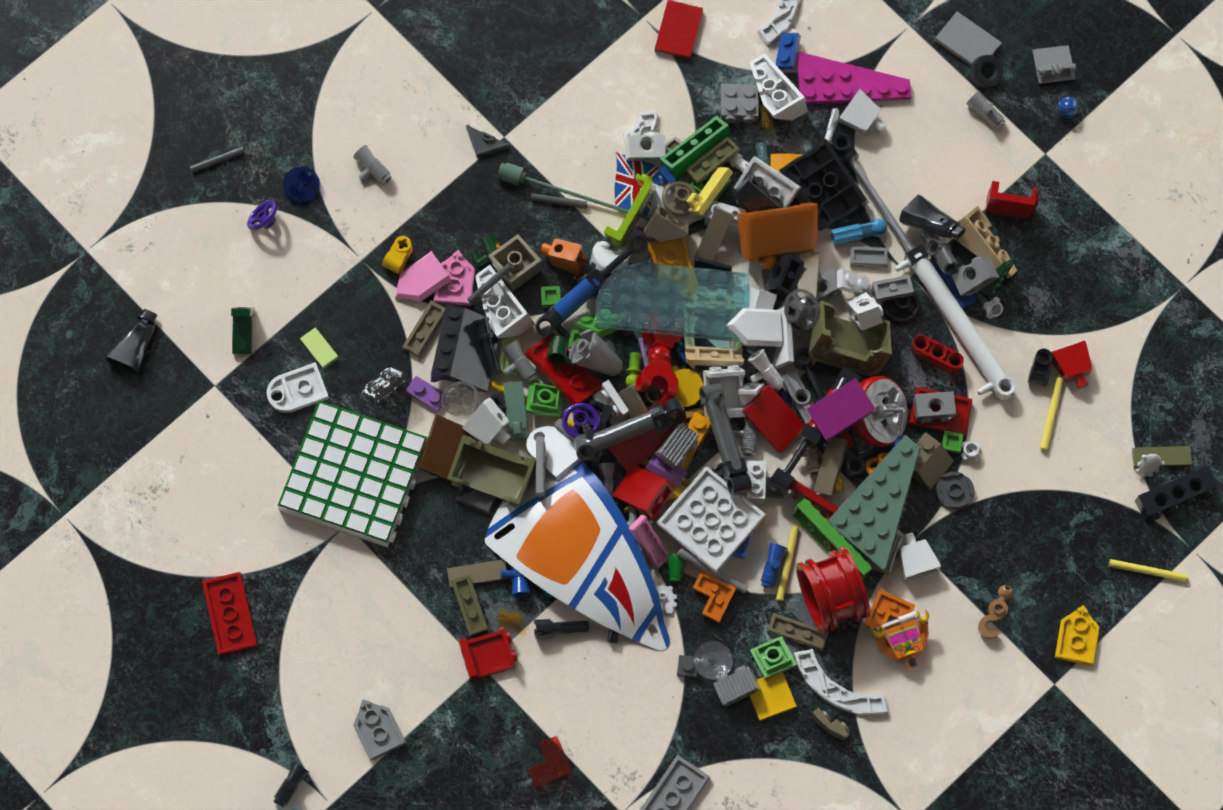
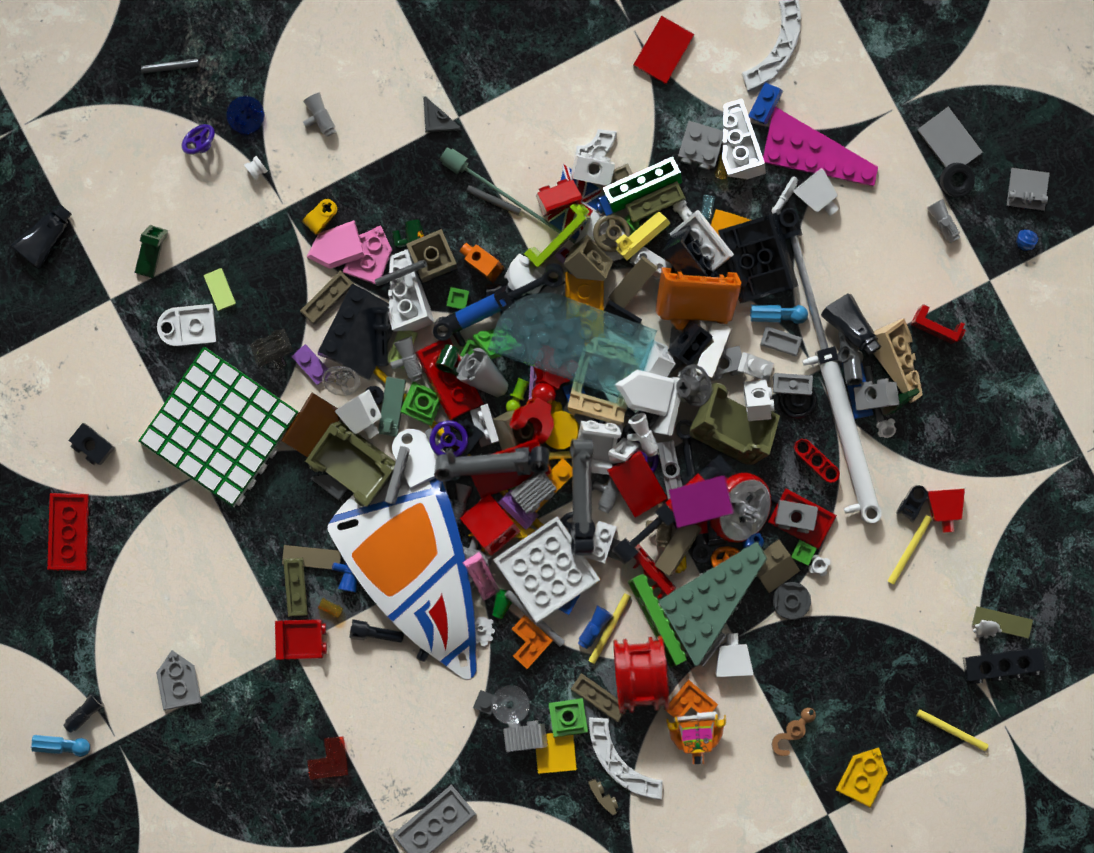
camera: 20 degrees right, 15 degrees up
(224, 514) = (102, 446): none -> black brick
(324, 228) = (255, 168): none -> white wheel
(620, 179) = (558, 197): none -> slope

